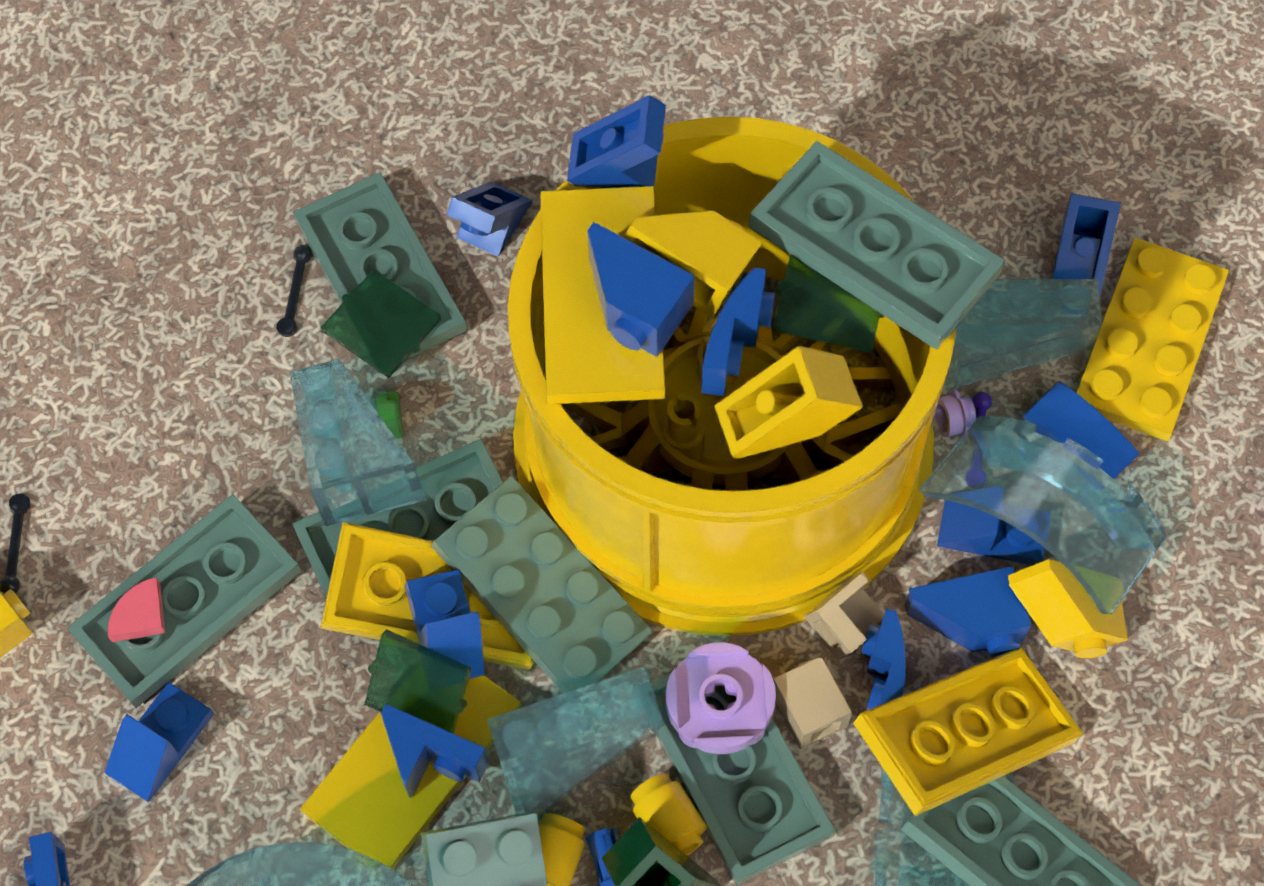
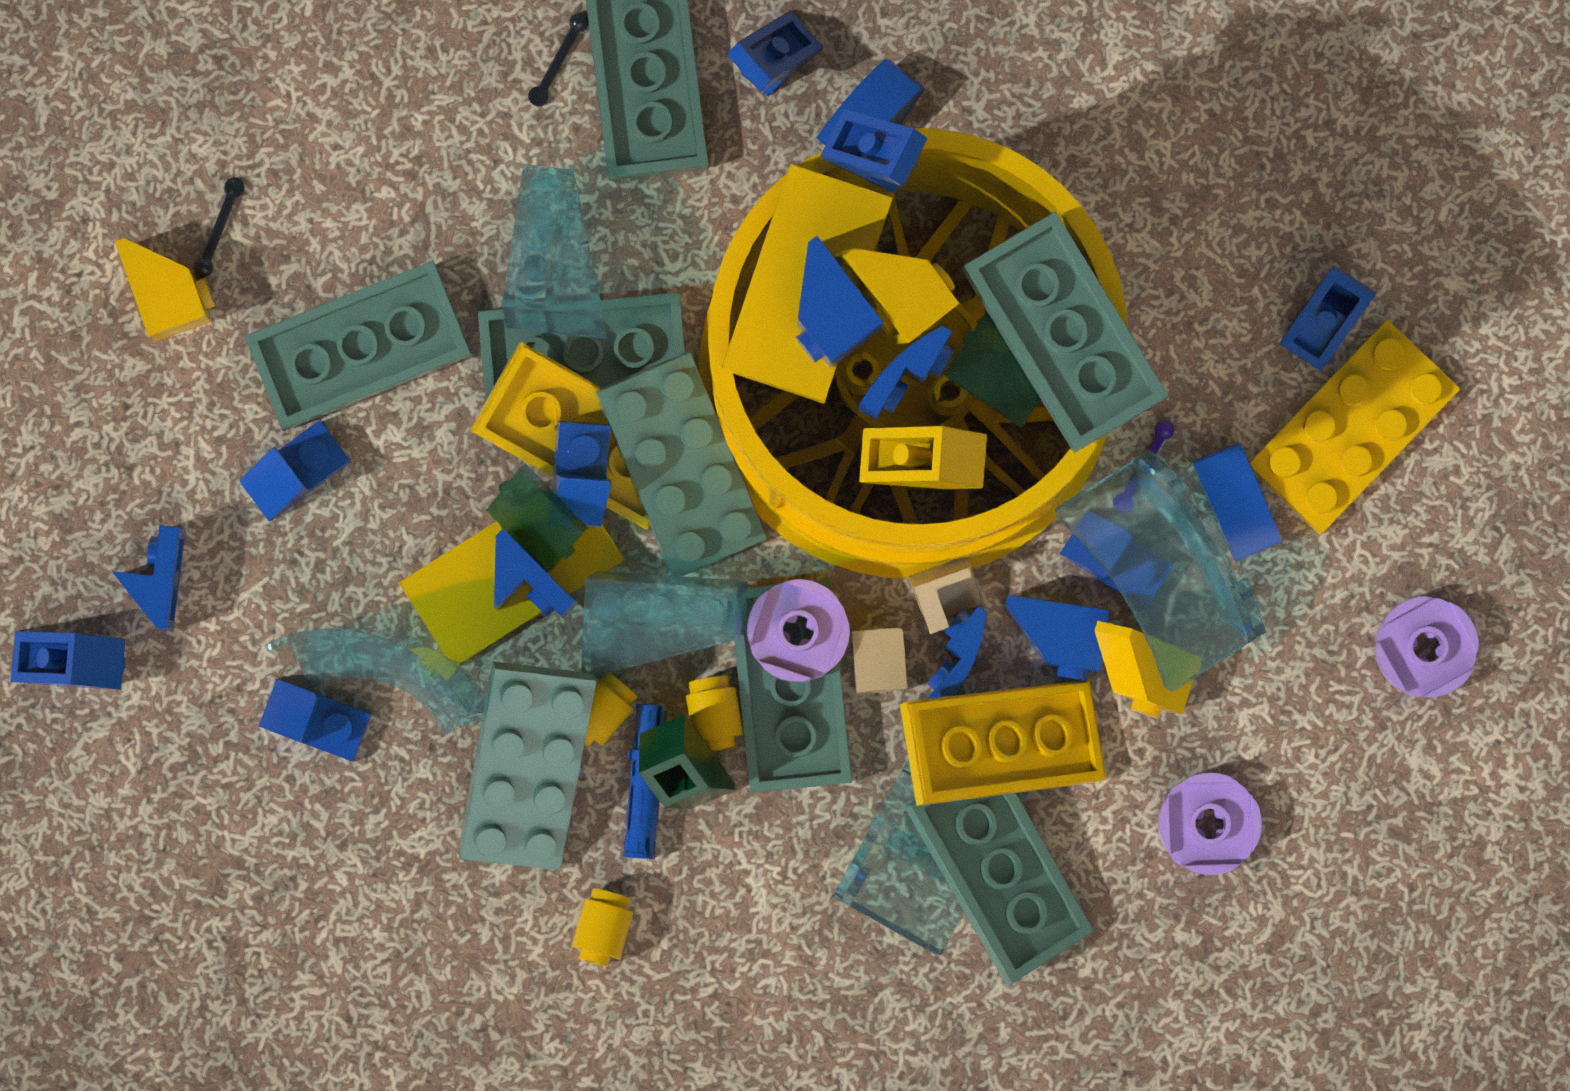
camera: 15 degrees right, 20 degrees up
(138, 613) = (312, 349): coral tile -> none
(381, 323) = (627, 137): clear green piece -> none
(390, 411) = (605, 229): bright green tile -> none
(958, 411) = (1131, 438): lavender plate -> none
(1024, 326) = (1227, 370): clear light blue wedge -> none
(1212, 710) = (1229, 802): none -> lavender plate

